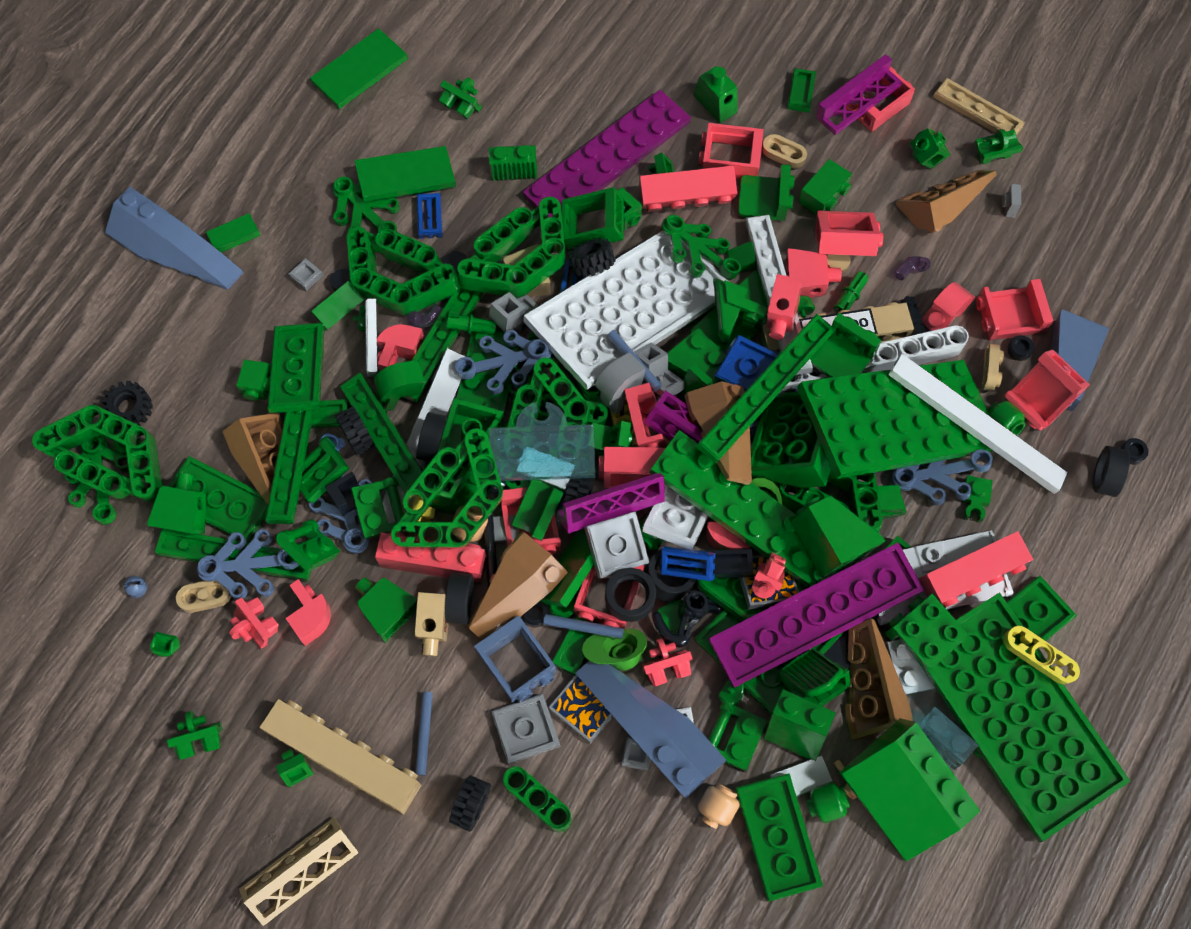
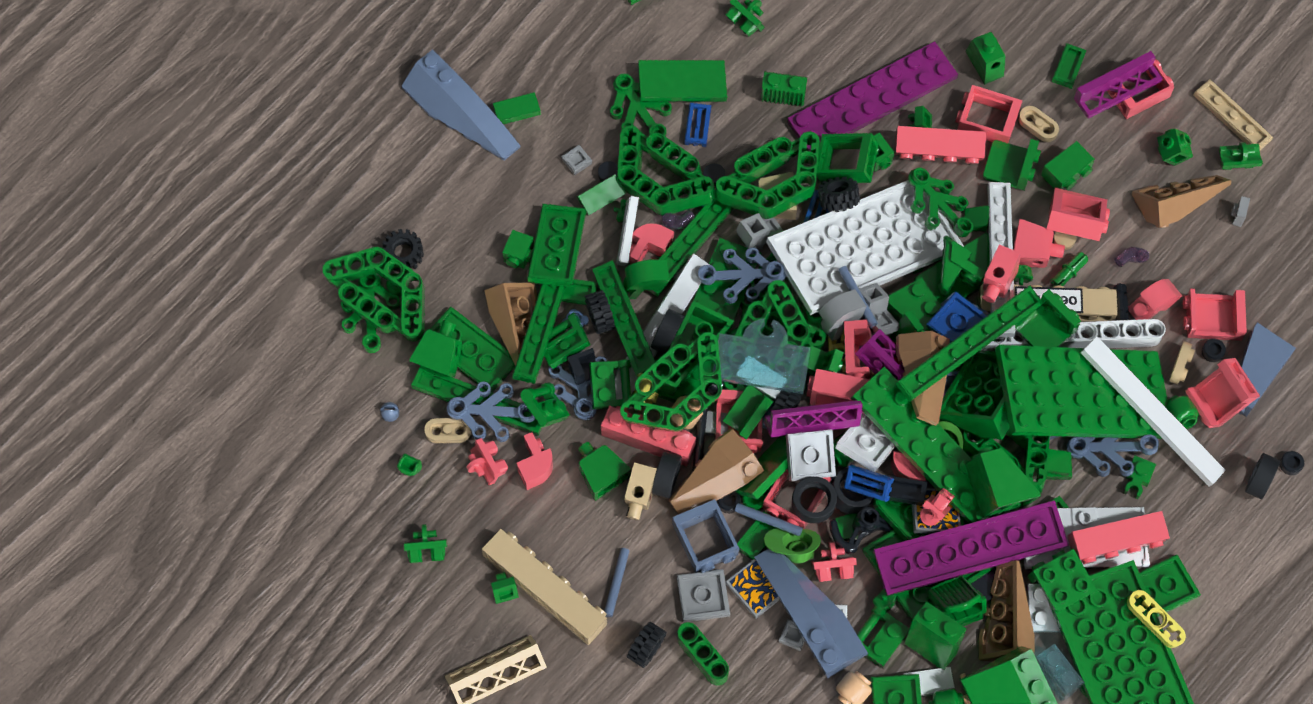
camera: 10 degrees right, 0 degrees up
(469, 324) = (718, 235): green axle -> none

